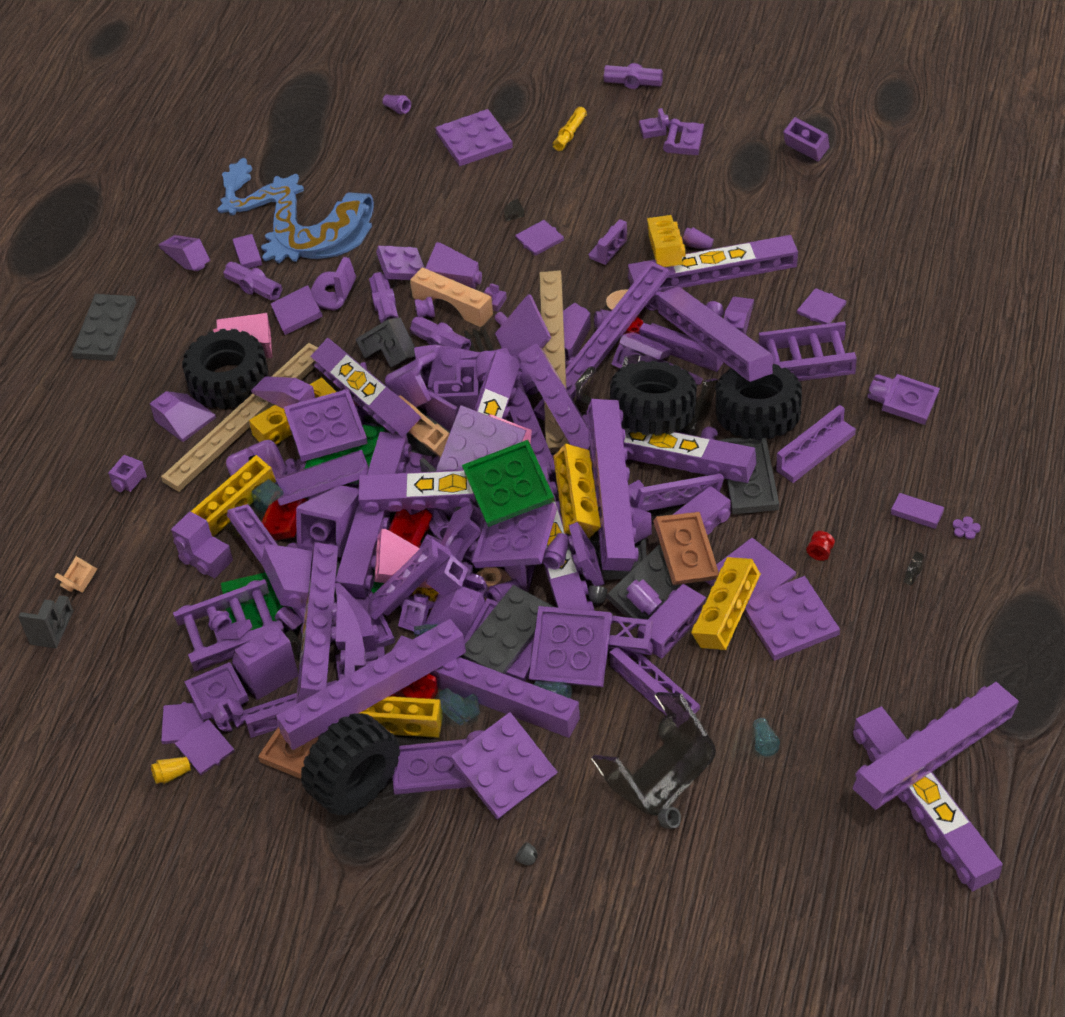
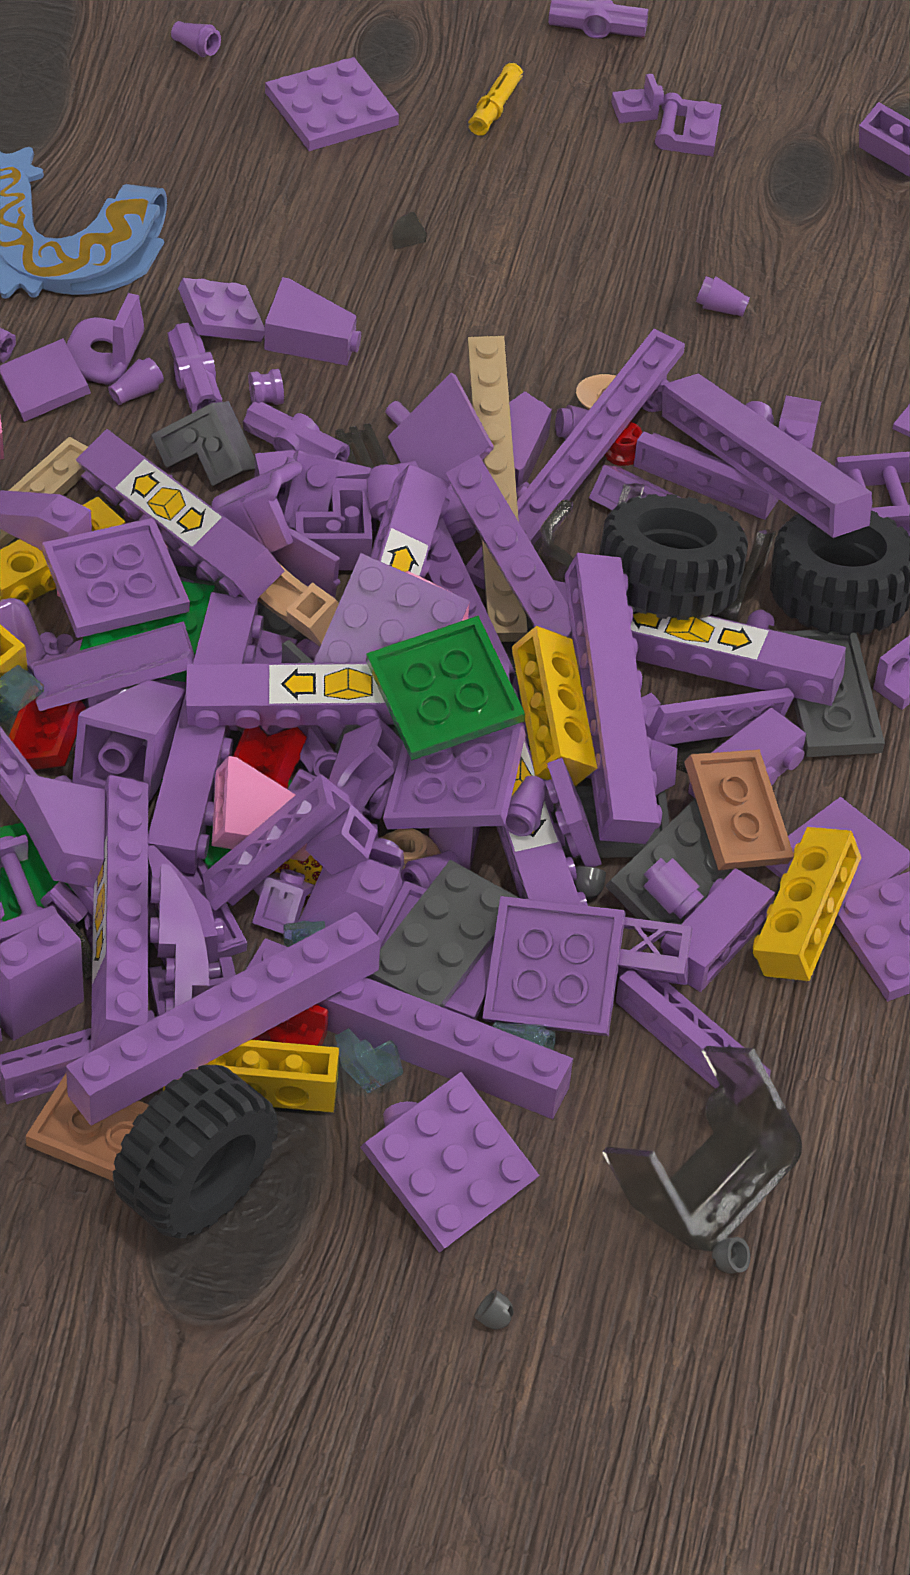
camera: 10 degrees left, 0 degrees up
(352, 306) = (137, 381): none -> medium lavender cone
(428, 767) = (322, 1163): medium lavender tile -> none
(471, 303) = (348, 385): light nougat arch -> none
(498, 297) = (380, 377): medium lavender tile -> none
(539, 237) = (454, 279): medium lavender piece -> none
(610, 243) = (576, 295): medium lavender bracket -> none
(652, 349) = (637, 465): medium lavender plate -> none
(666, 241) = (673, 296): yellow brick -> none
(726, 263) = (767, 338): medium lavender brick -> none
(765, 738) = (882, 1127): clear light blue cone -> none

